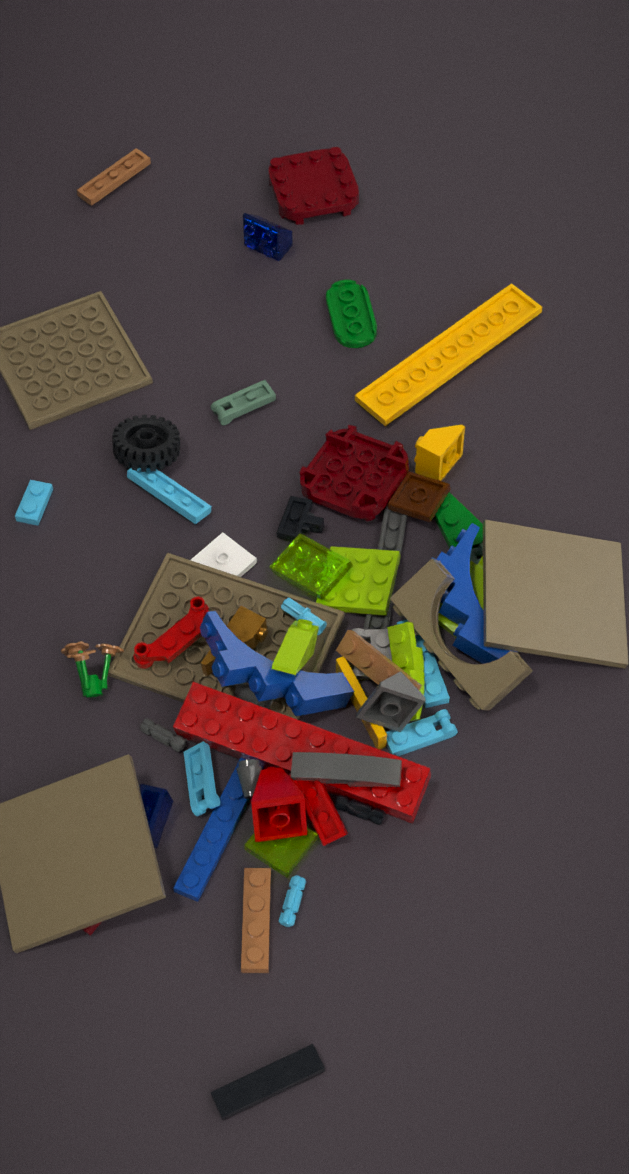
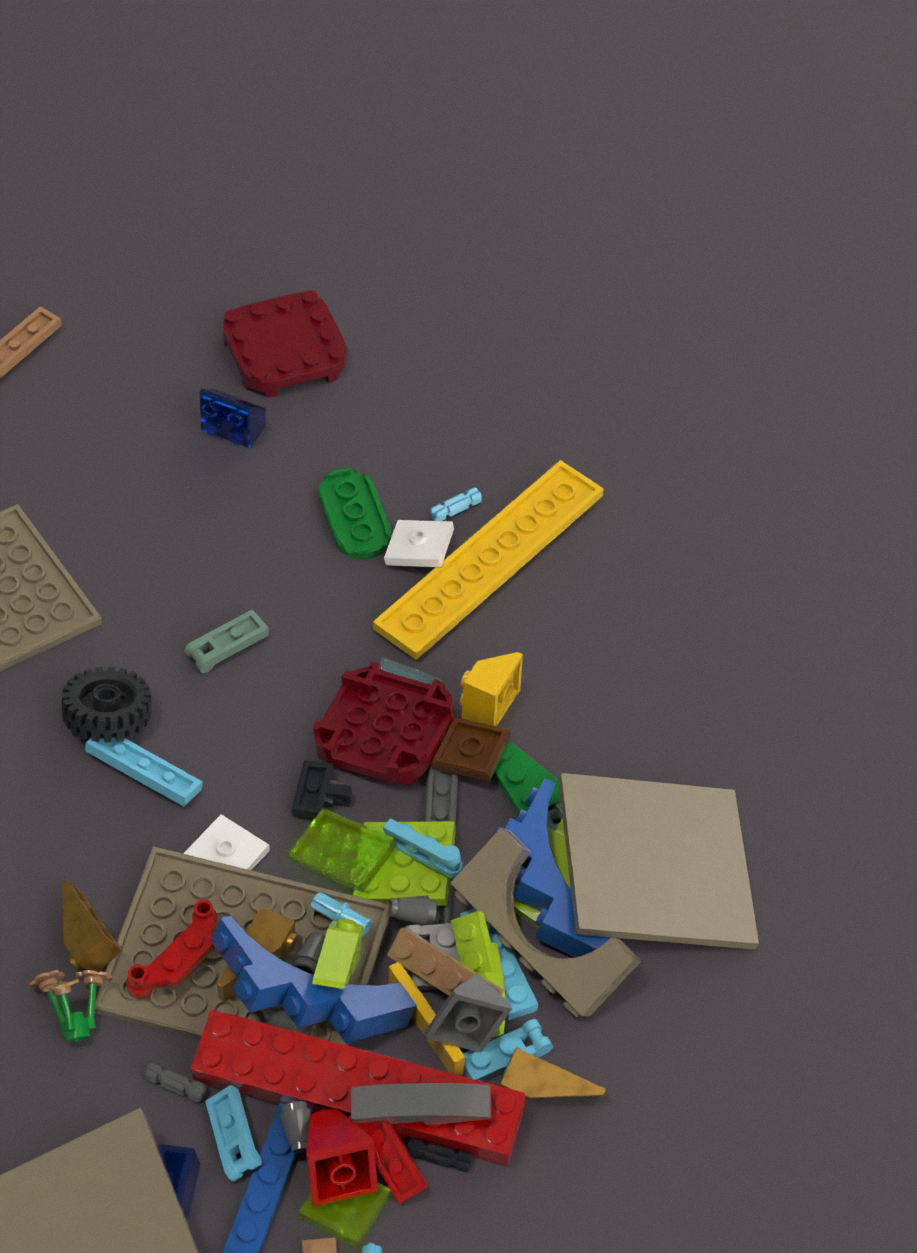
camera: 10 degrees left, 5 degrees down
(108, 614) = (85, 932): none -> pearl gold slope
(273, 645) = (309, 953): none -> dark grey cone
(360, 616) = (416, 909): none -> dark grey cone
(373, 570) = (425, 849): none -> medium azure plate
(376, 434) = (406, 671): none -> clear light blue tile
(397, 338) = (419, 543): none -> white plate
(428, 312) = (455, 504): none -> medium azure axle
(446, 758) = (543, 1079): none -> pearl gold slope

